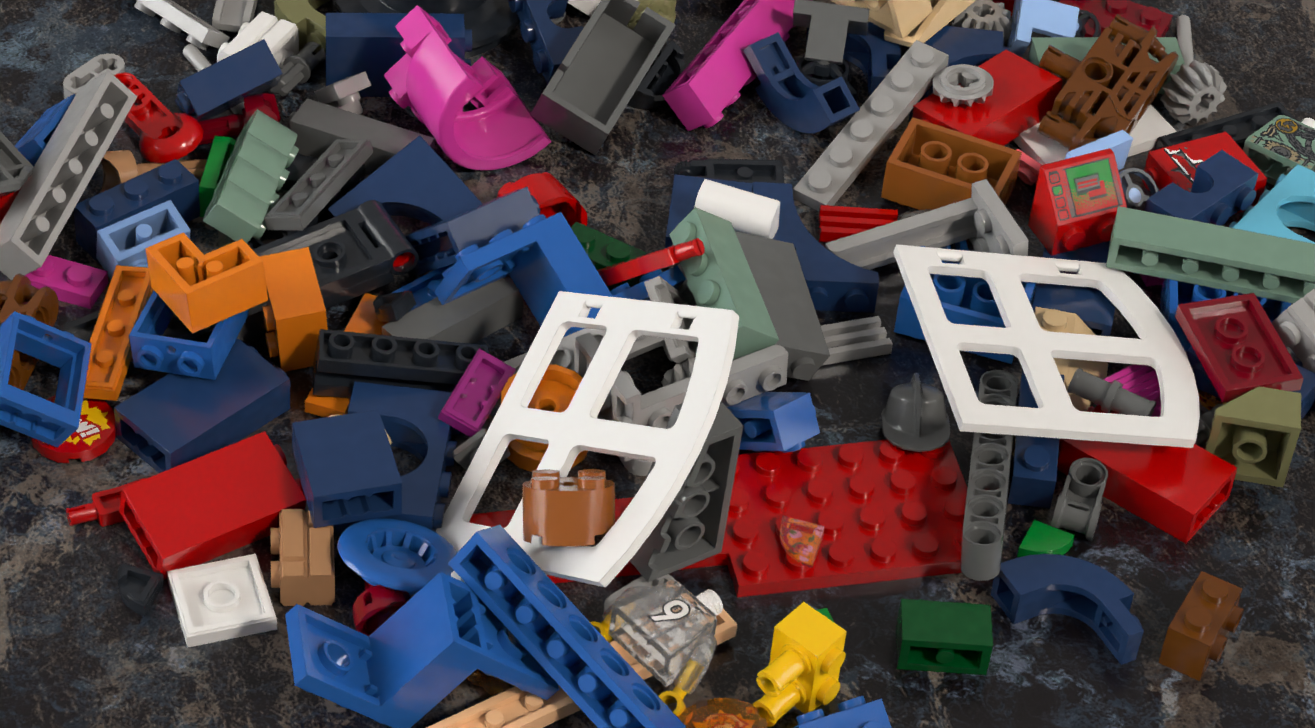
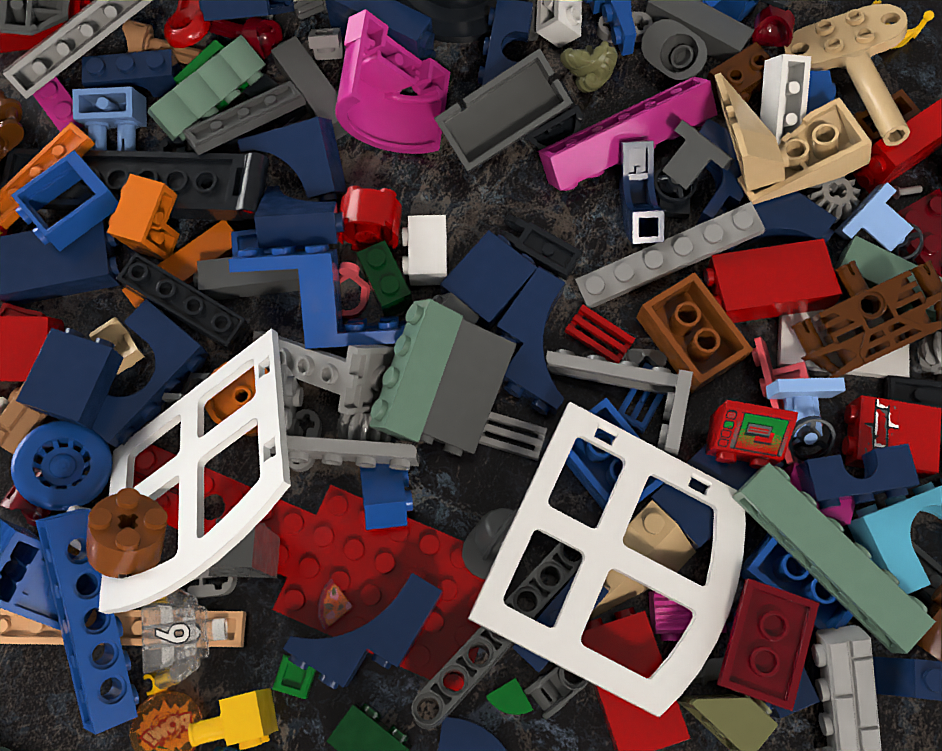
camera: 40 degrees right, 30 degrees up
(206, 286) = (55, 185): orange brick -> none
(393, 306) = (217, 247): black tile -> none
(476, 393) = (203, 358): magenta plate -> none
(624, 215) = (426, 249): none -> white brick
(651, 262) = (368, 314): red piece -> none
(745, 210) = (495, 295): white brick -> none
(882, 530) = (387, 636): none -> dark blue arch
(976, 82) = (772, 259): light grey gear -> none
(1109, 395) = (638, 624): dark grey pin -> none

